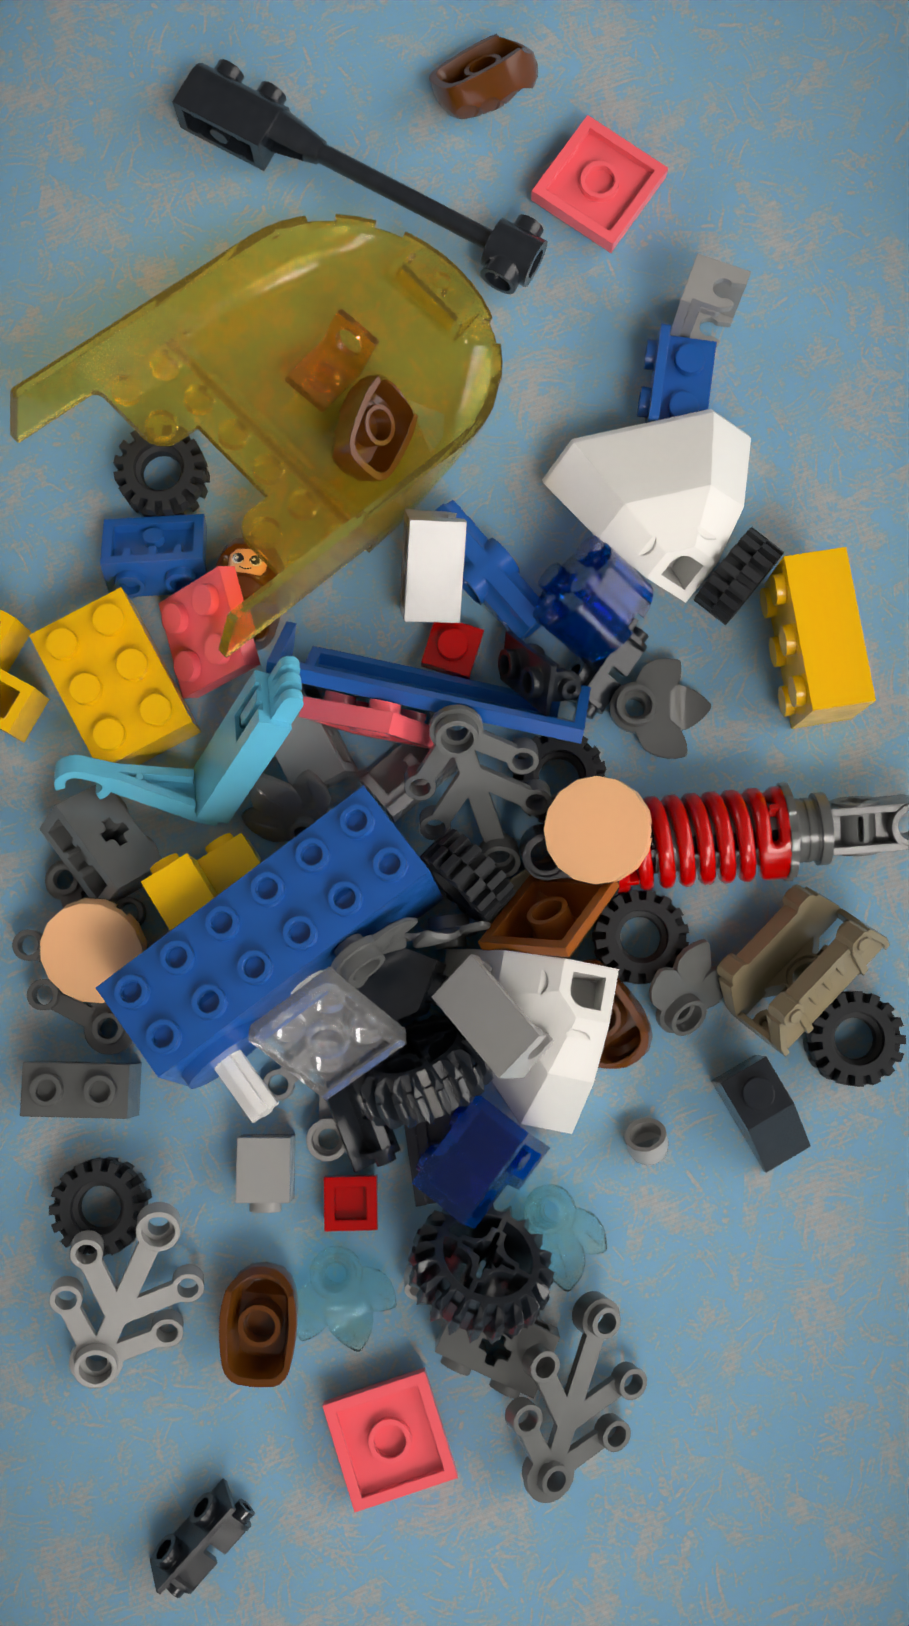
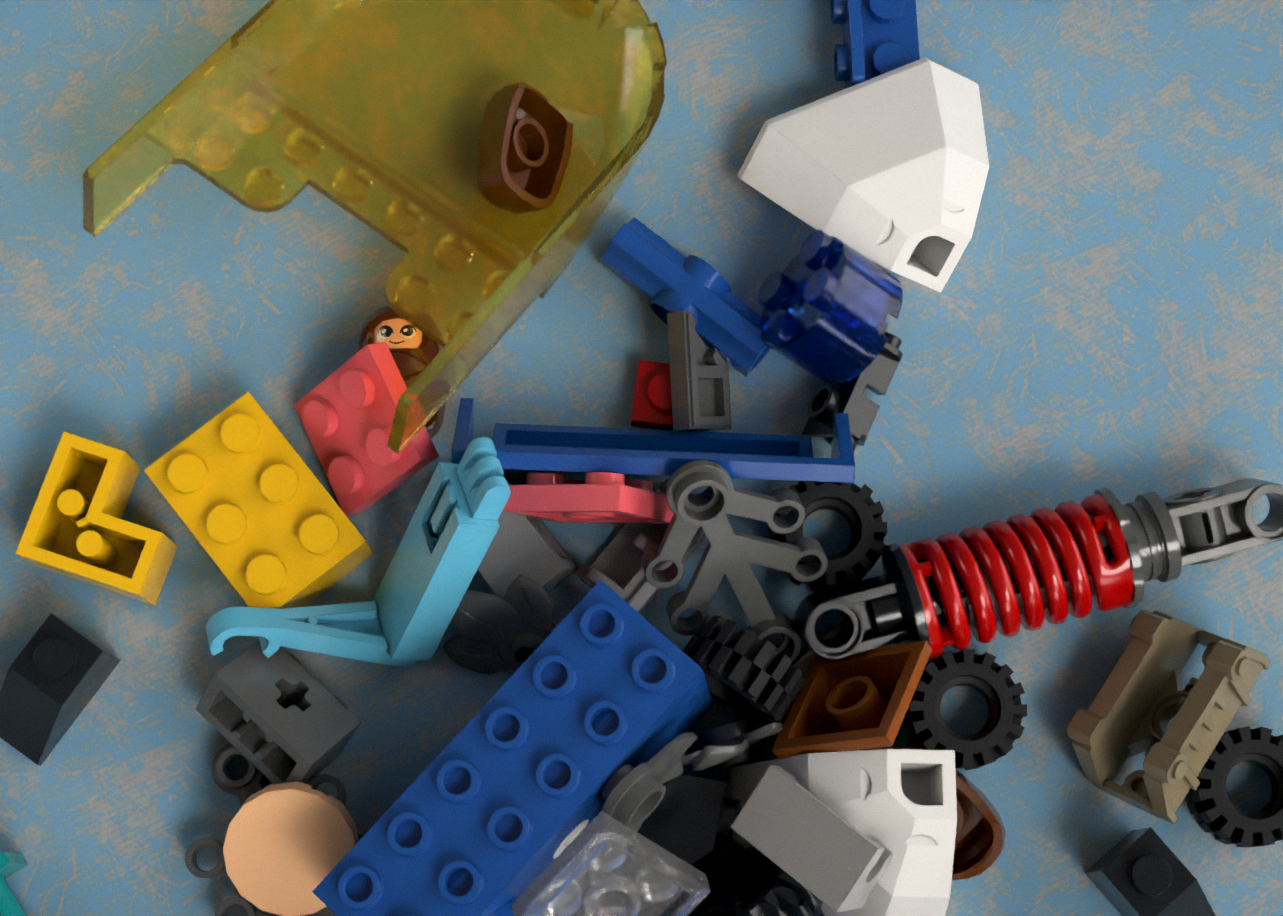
camera: 15 degrees left, 5 degrees down
(153, 553) = (278, 345): blue bracket -> none
(161, 502) = (279, 280): black tyre -> none
(185, 884) = (398, 746): yellow brick -> none
(331, 365) = (456, 81): clear orange bracket -> none
(432, 566) = (625, 301): hinge -> none
(477, 637) = (697, 378): none -> dark grey tile
(535, 674) = (776, 411): black hinge -> none
(598, 830) = (894, 584): light nougat tile -> none
(666, 708) = (939, 425): dark grey plate -> none
(686, 990) = (1034, 764): dark grey plate -> none
(738, 575) = (998, 250): black tyre -> none
(817, 638) = (1108, 309): yellow brick -> none

